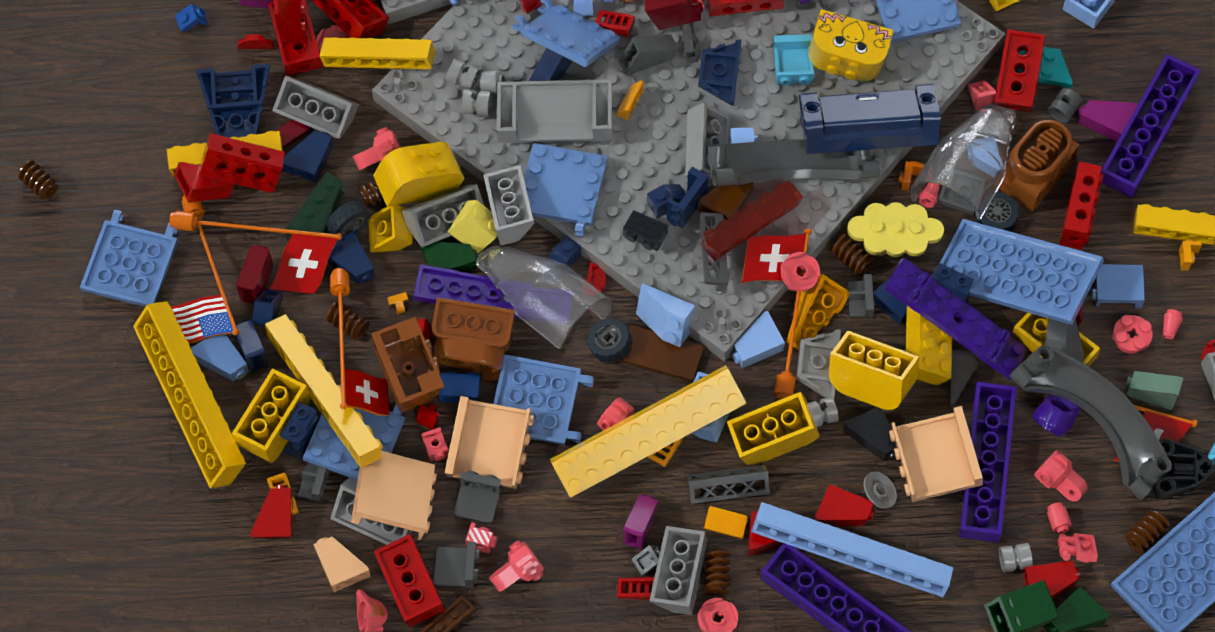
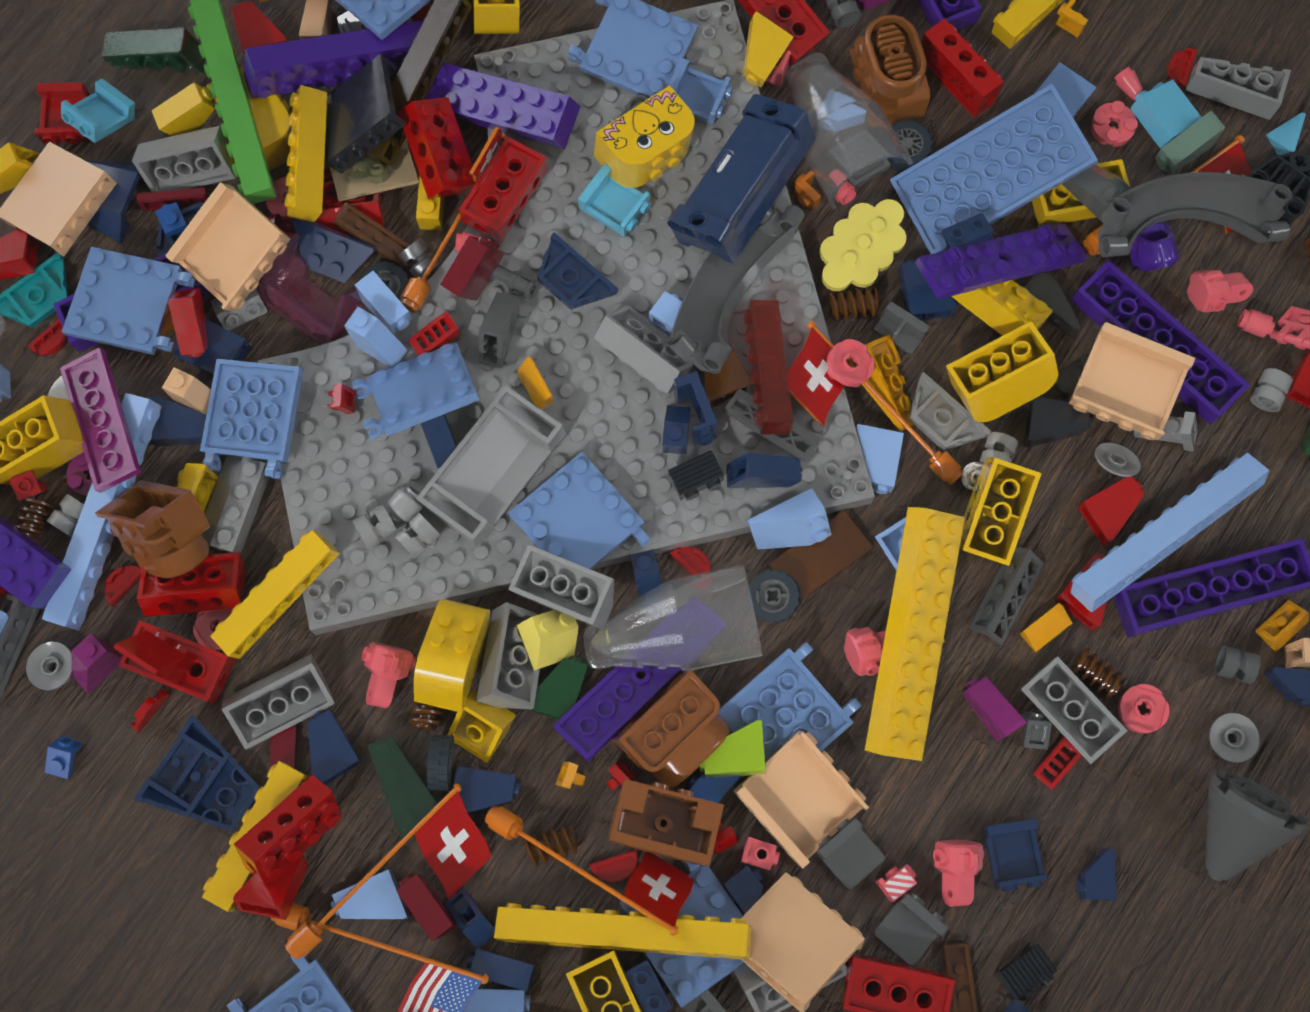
camera: 55 degrees left, 10 degrees up
(235, 243) = (373, 900): none -> light blue slope
(358, 364) = (615, 868): none -> red tile
(408, 446) = (745, 888): none -> dark blue slope
(487, 382) = (738, 755): none -> lime slope
(556, 599) = (1014, 854): none -> dark blue panel
(680, 267) = (763, 471): none -> dark blue slope
(913, 55) = (701, 92): none -> medium blue panel
(934, 515) = (1180, 431): none -> light grey bracket
(978, 74) = (764, 49): none -> yellow slope
(1167, 355) = (1164, 112): none -> medium azure brick

